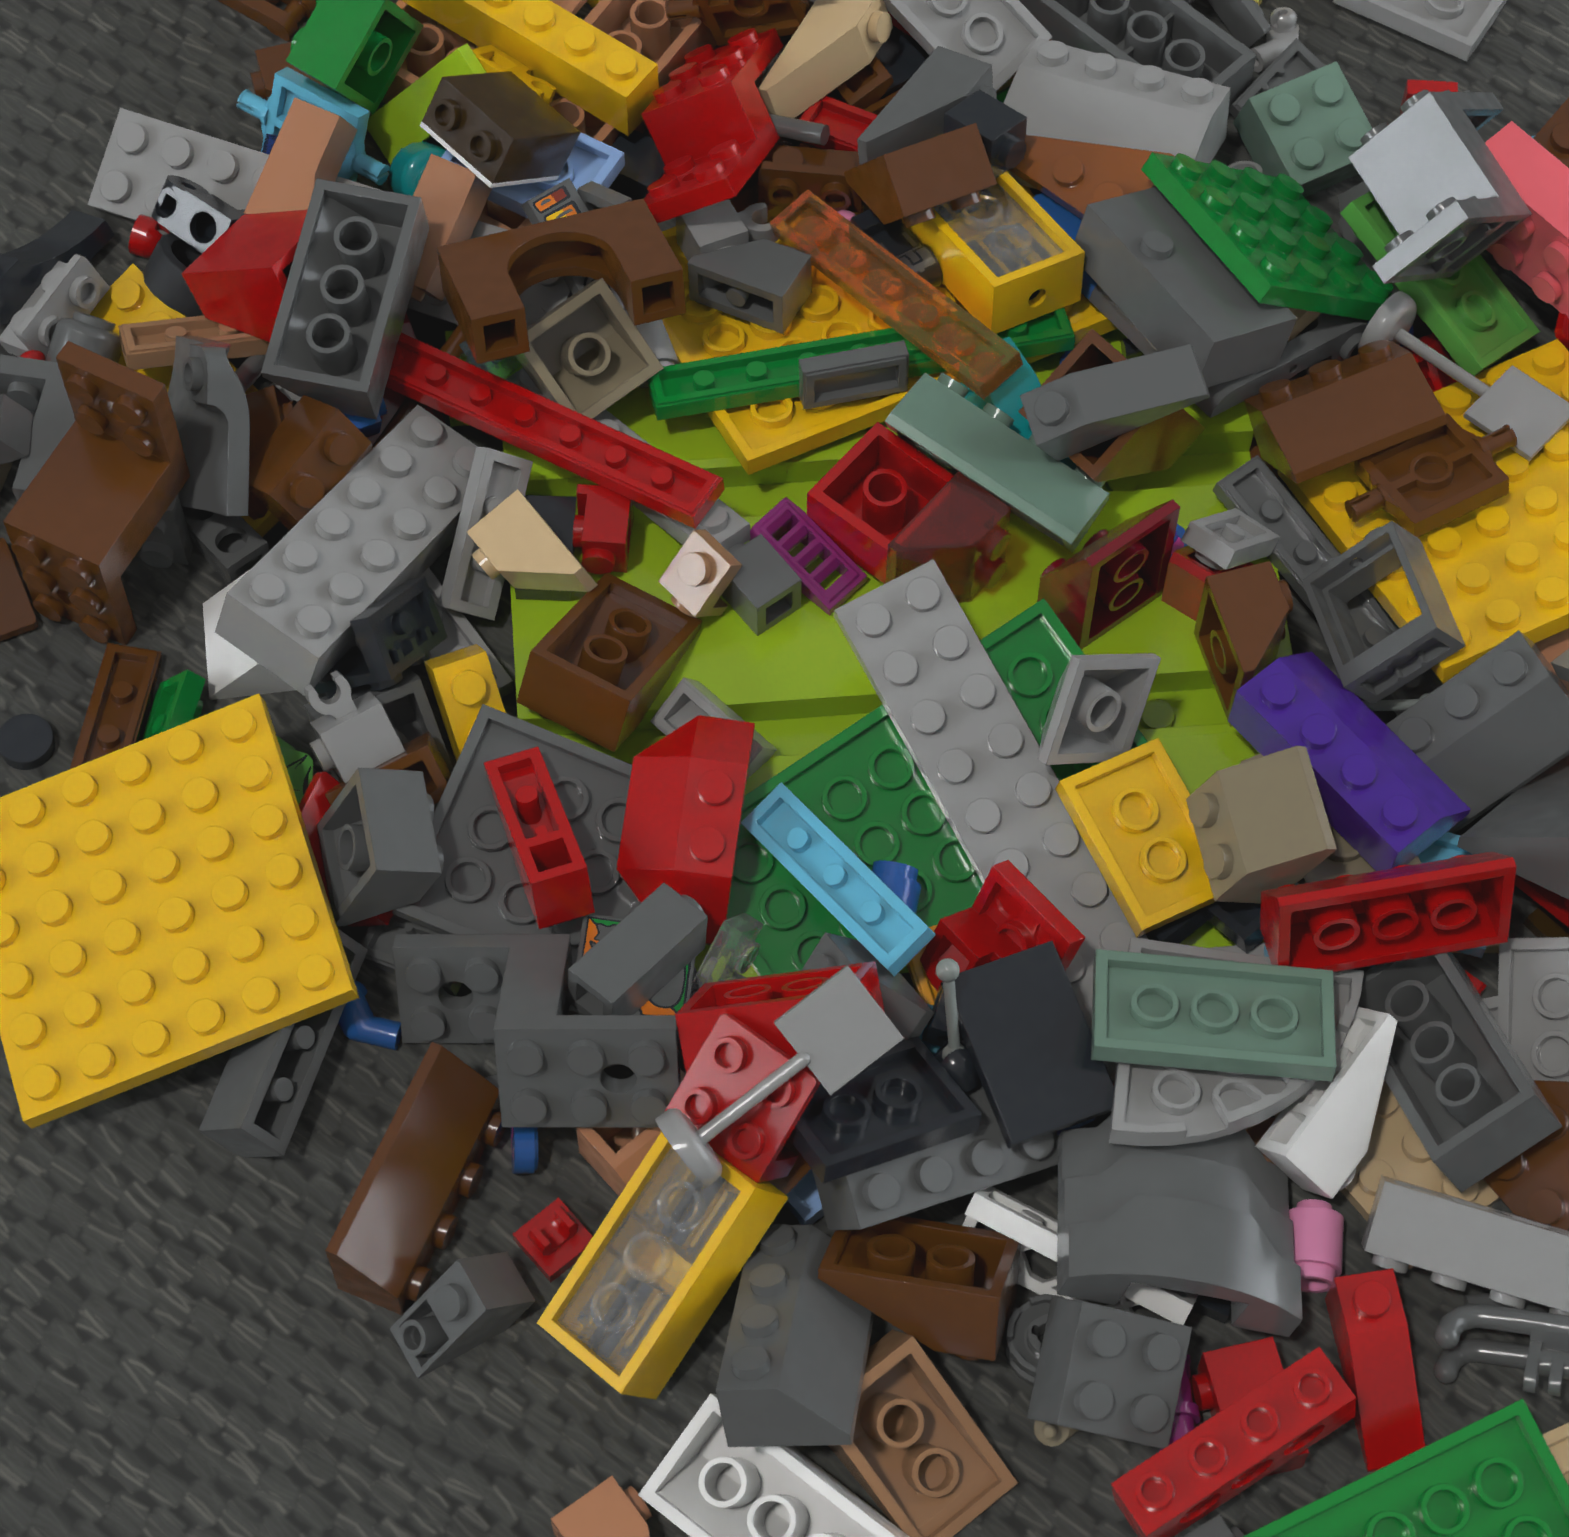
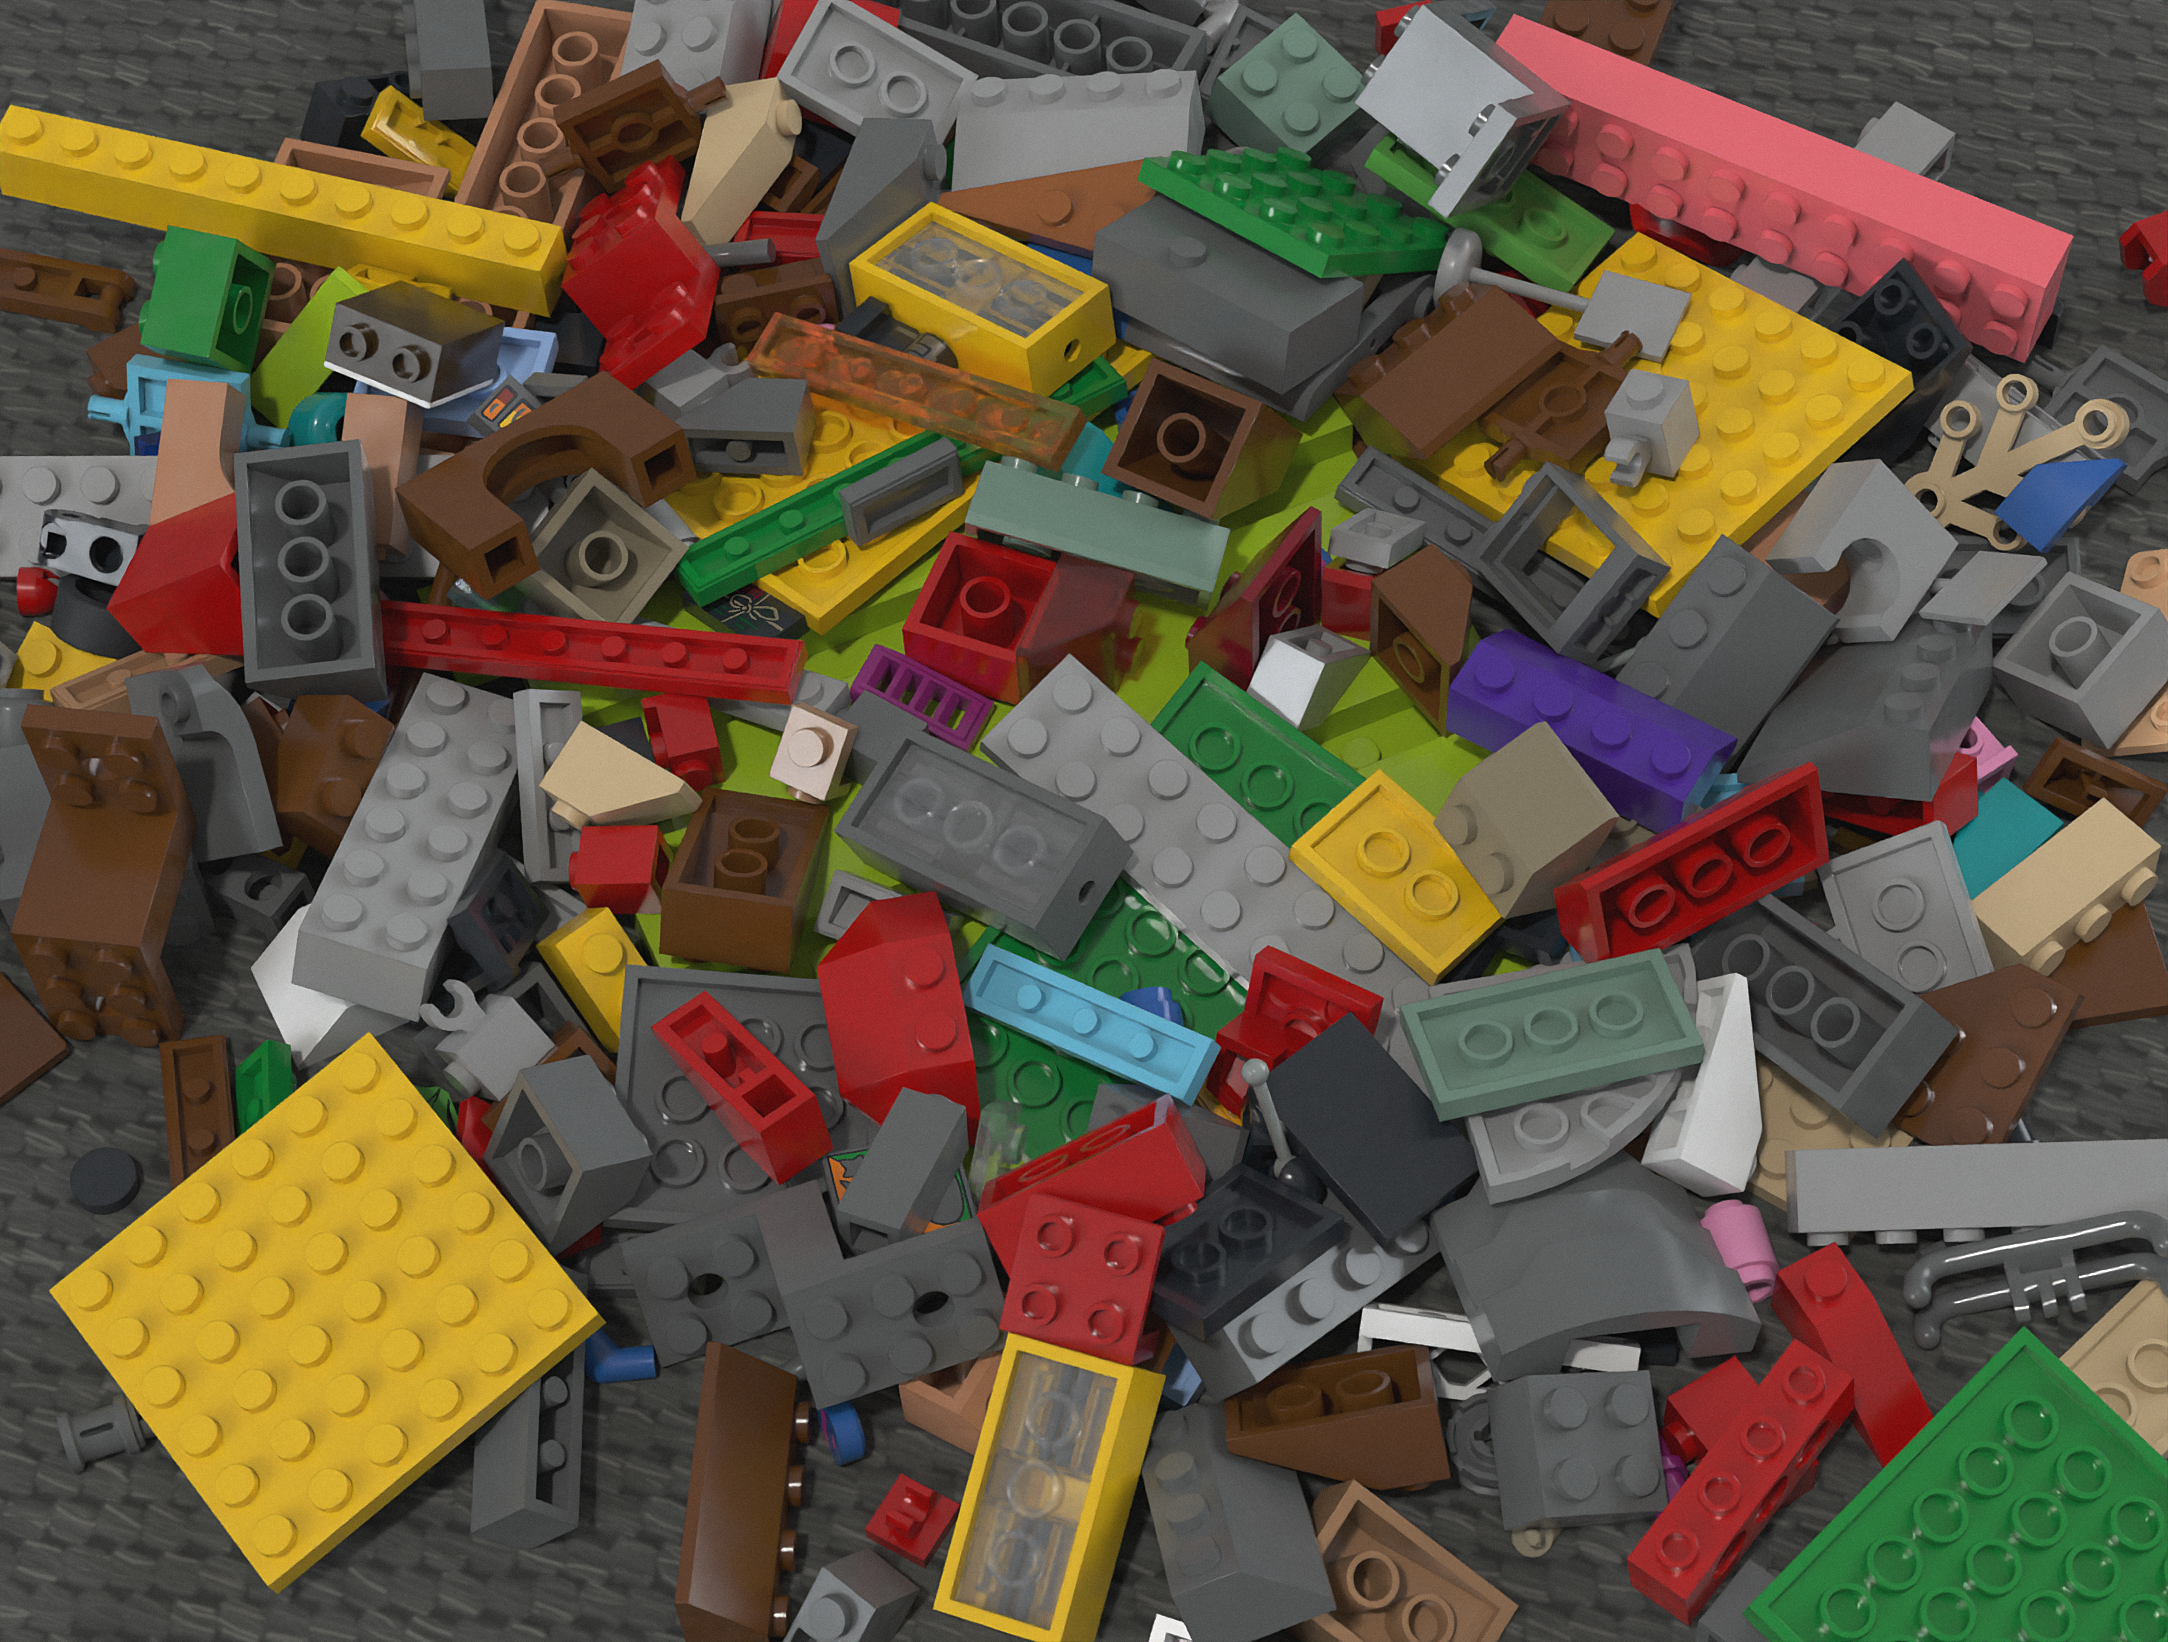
camera: 15 degrees left, 5 degrees down
(511, 619) = (621, 868): none -> red brick
(698, 441) = (749, 613): none -> black tile
(808, 695) = (984, 841): none -> brick
(835, 1034) = (1166, 1172): light grey piece -> none
(923, 176) = (905, 256): reddish brown slope -> none
(999, 126) = (952, 196): black brick -> none
(1097, 707) = (1303, 754): light grey slope -> none
(1112, 400) = (1204, 424): dark grey slope -> none
(1133, 626) = (1306, 674): none -> light grey slope
(1493, 517) = (1649, 426): none -> light grey brick

